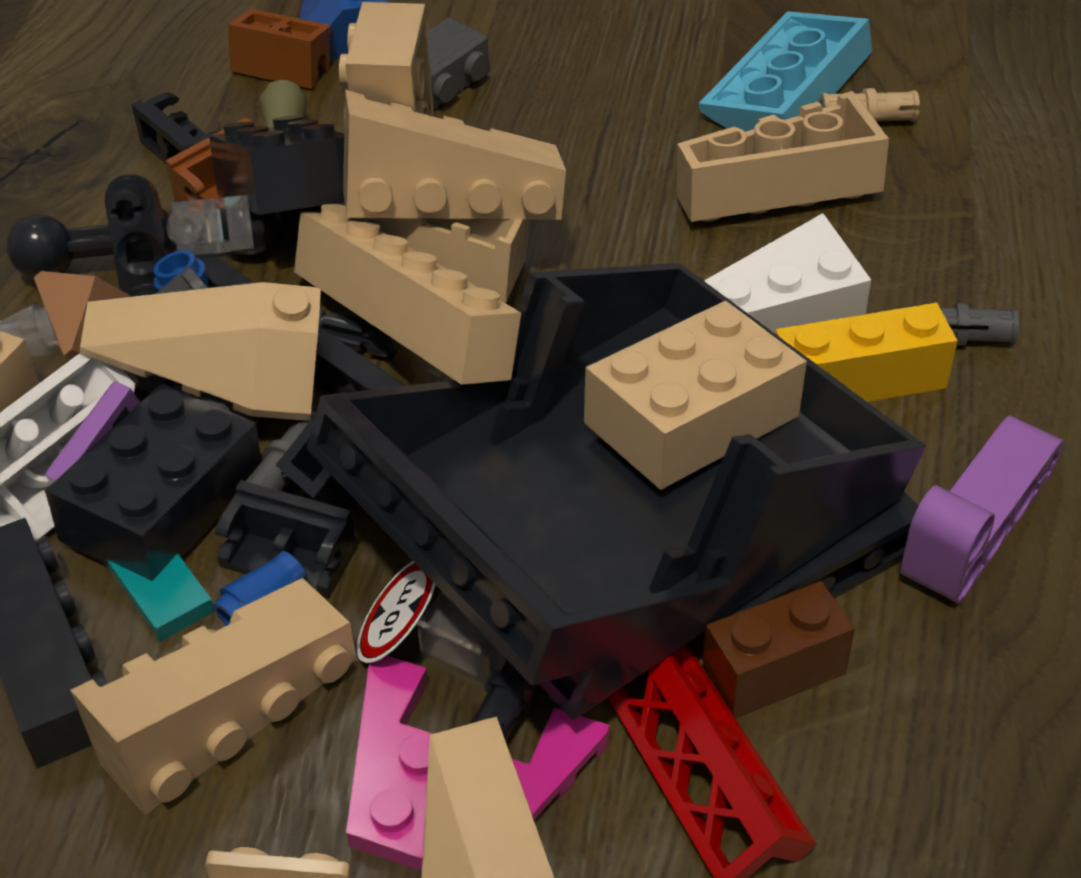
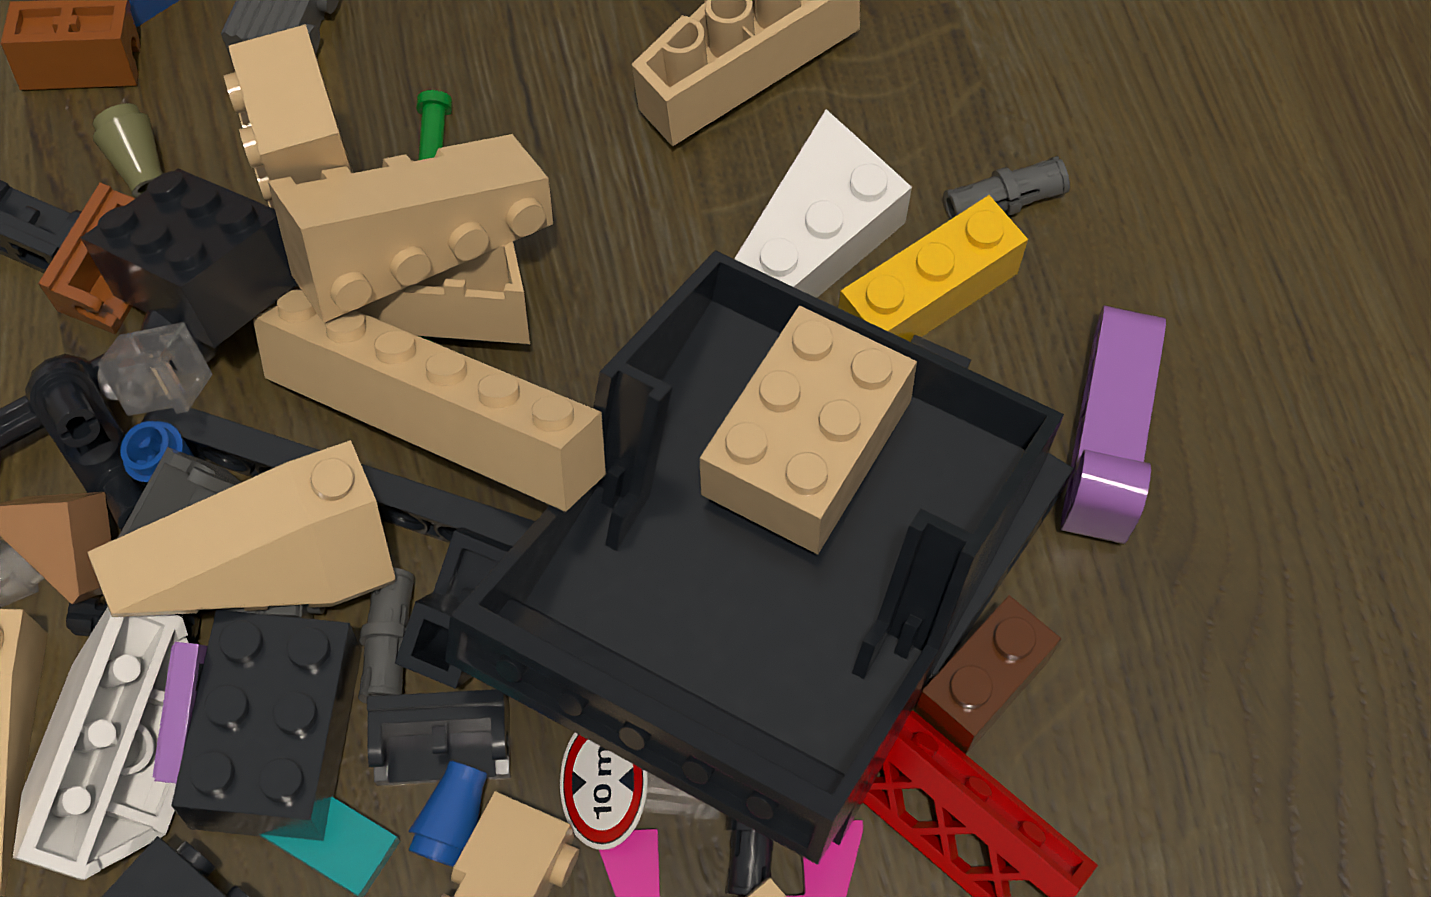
camera: 25 degrees left, 20 degrees up
(357, 334) = (365, 438): black axle -> none

